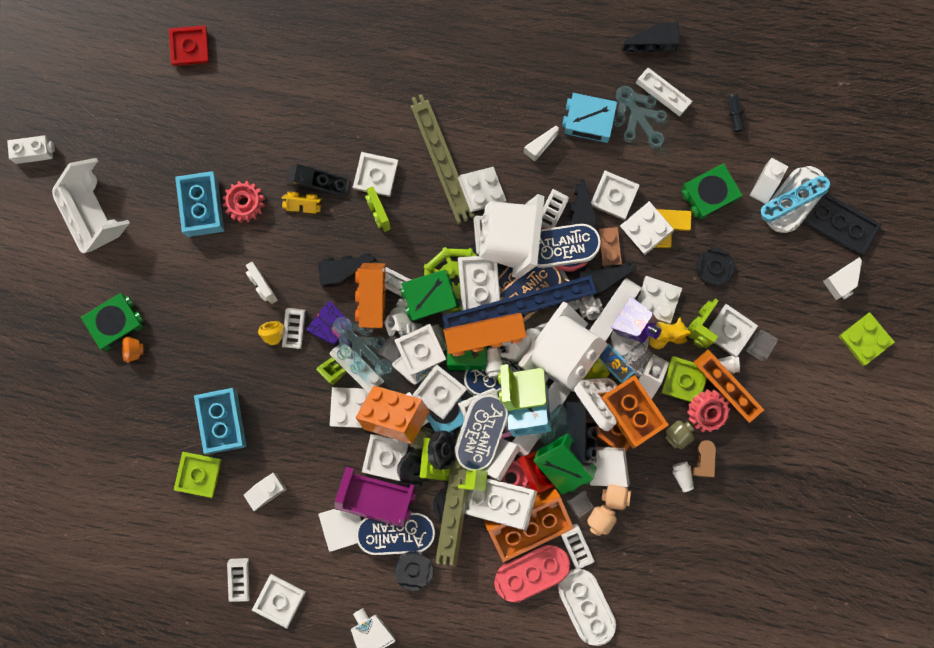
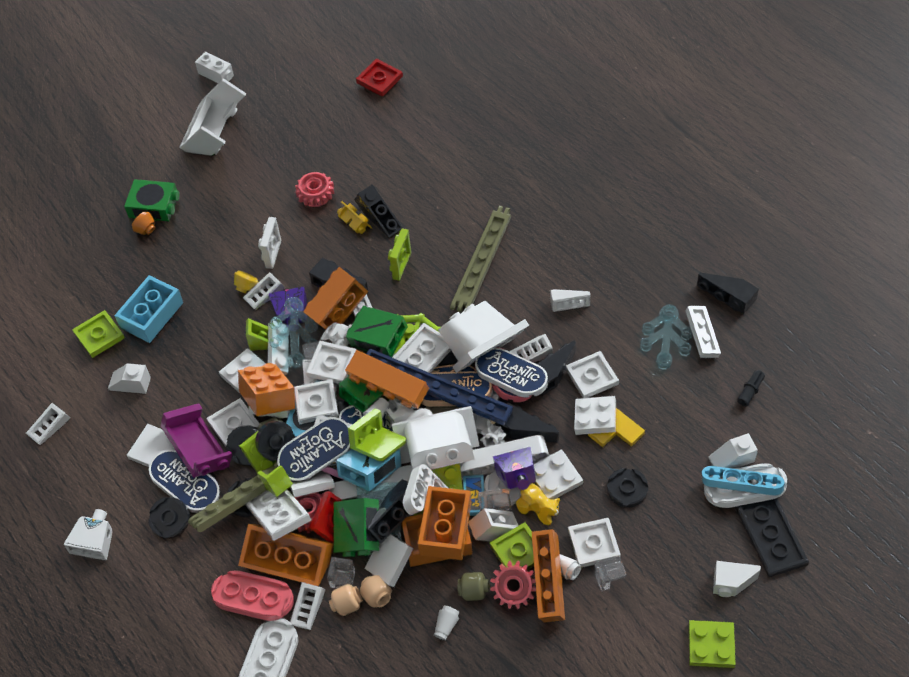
camera: 45 degrees right, 25 degrees down
(199, 204) = (283, 169): medium azure brick -> none
(279, 601) = (58, 462): white tile -> none
(375, 172) = (425, 236): white plate -> none
(481, 188) = (492, 292): white plate -> none
(589, 117) = (624, 308): medium azure brick -> none
(610, 247) = (554, 407): nougat plate -> none
(701, 335) = (572, 510): lime bracket -> none
(706, 460) = (476, 625): medium nougat leg -> none
(710, 192) = (674, 428): green brick -> none

